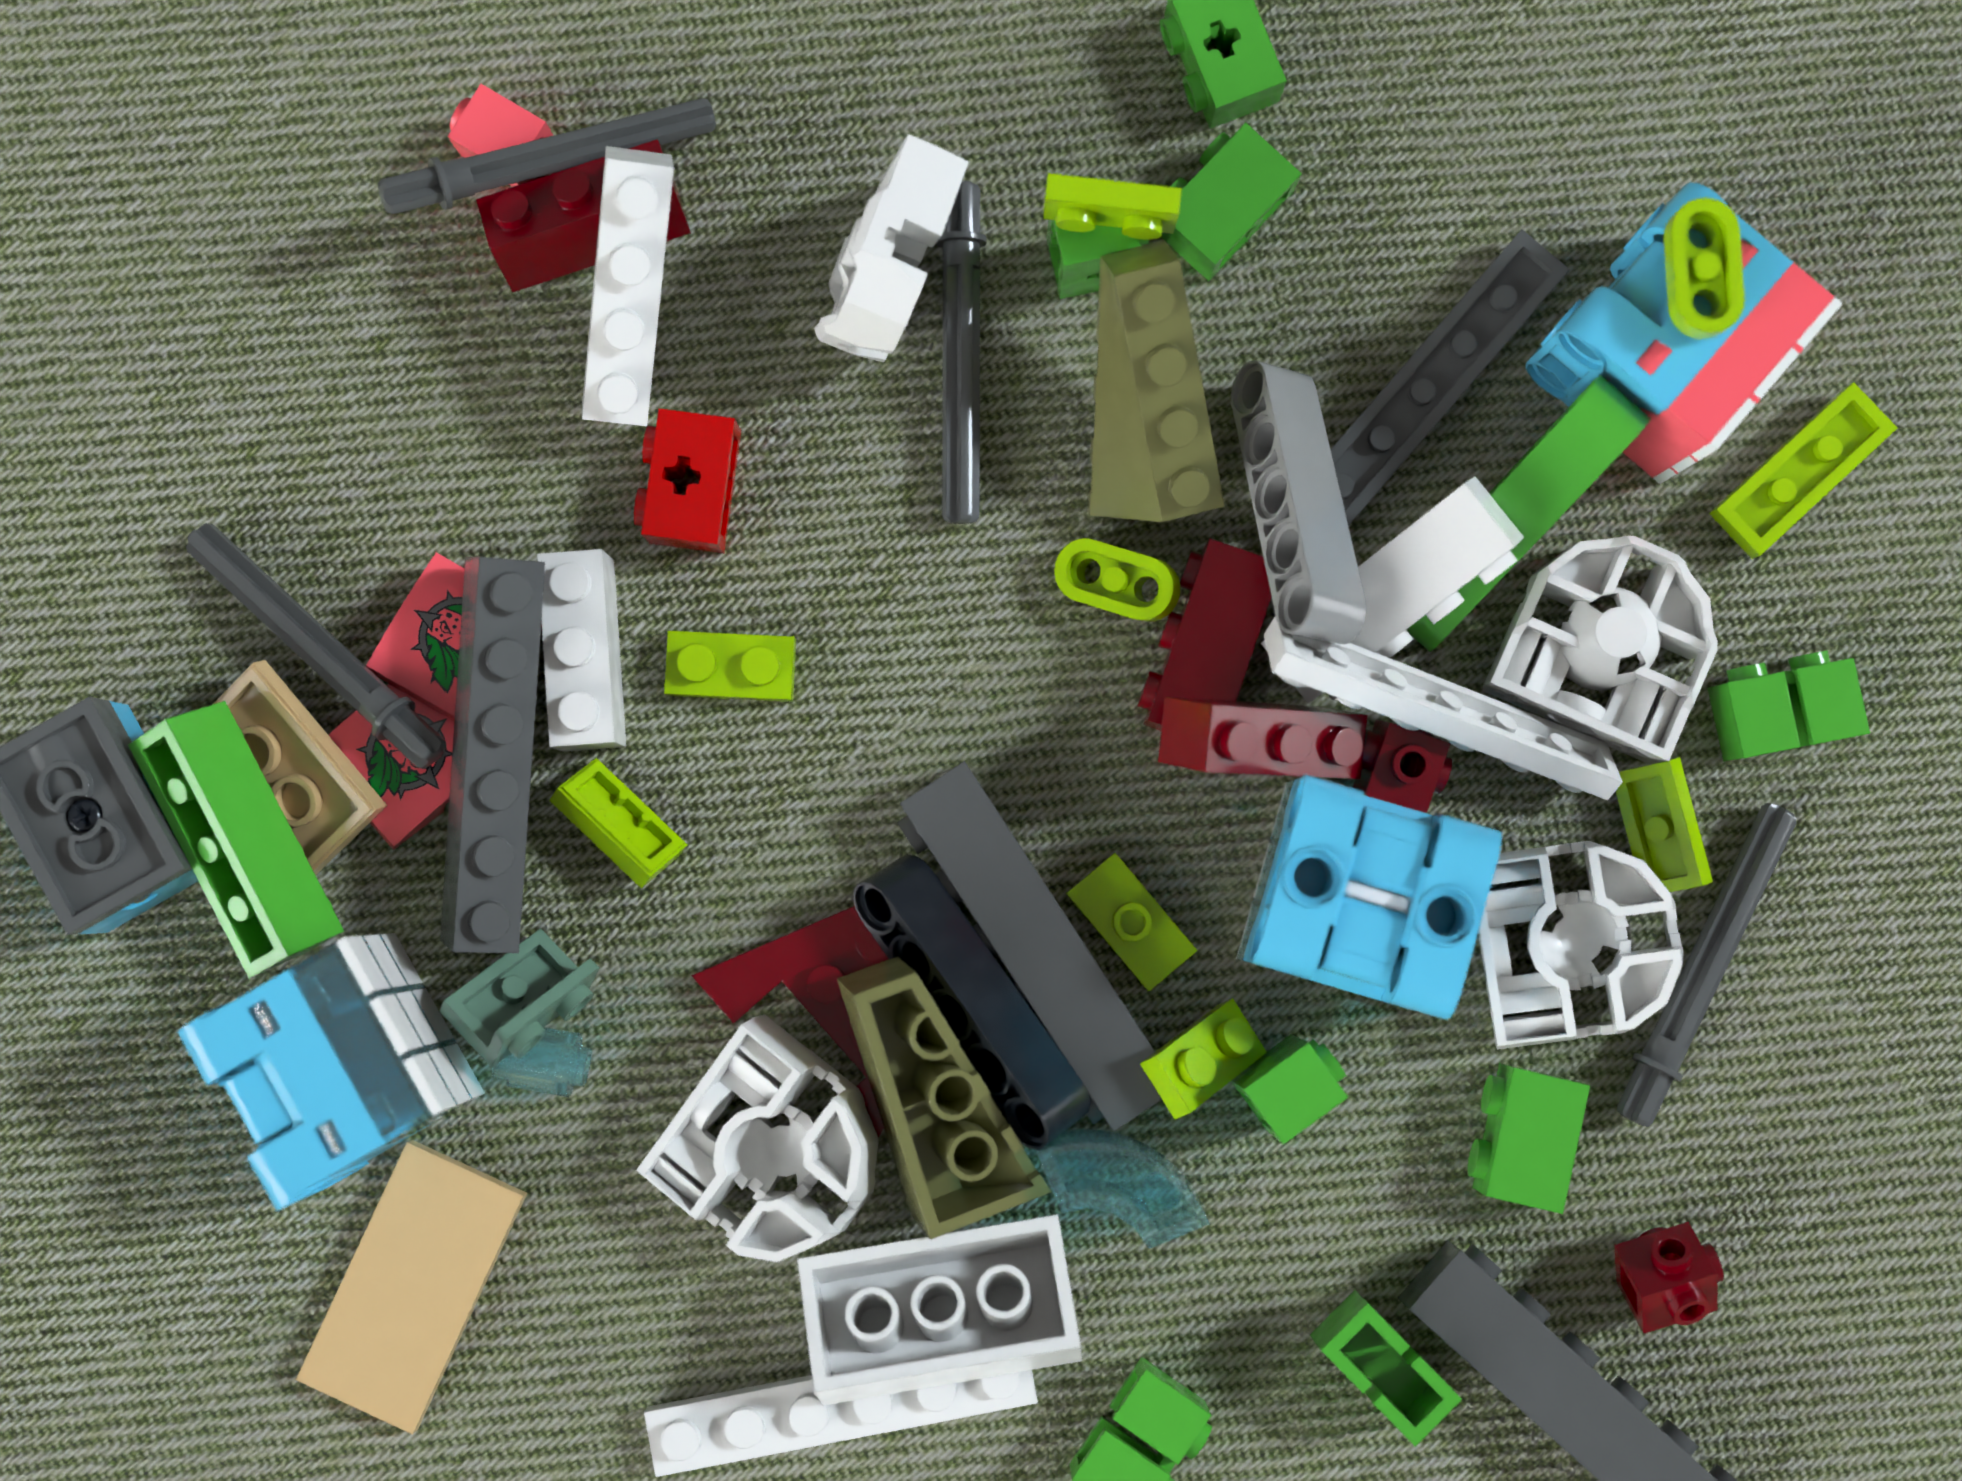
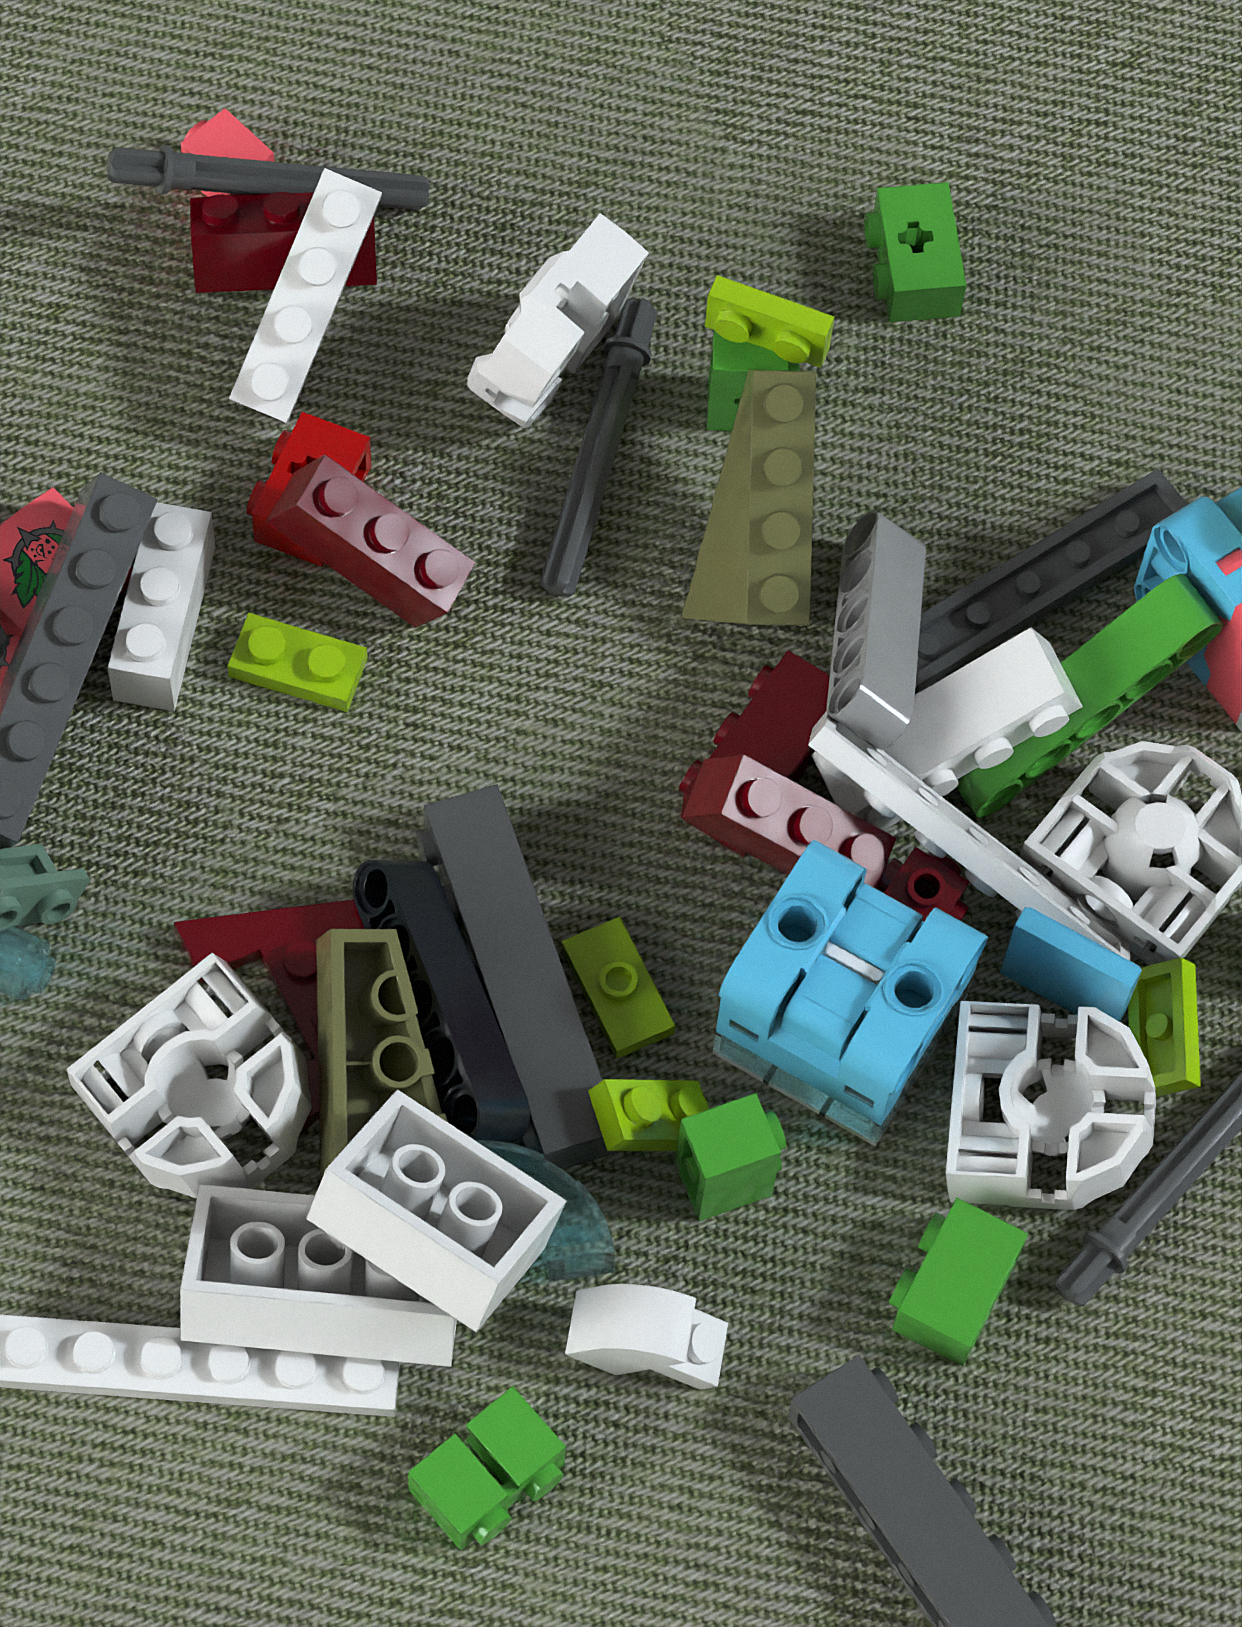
camera: 10 degrees right, 20 degrees down
(618, 822) = (148, 766): lime plate -> none
(768, 538) = (370, 541): none -> brick
(1039, 1259) = (435, 1210): none -> white brick
(1119, 580) = (695, 673): lime plate -> none
(1229, 199) = (885, 378): bright green brick -> none
(1252, 1275) = (645, 1329): none -> white brick
(1398, 1377) = (735, 1429): bright green piece -> none
(1569, 804) = (1068, 966): none -> medium azure tile
(1668, 1277) = (1064, 1445): dark red brick -> none

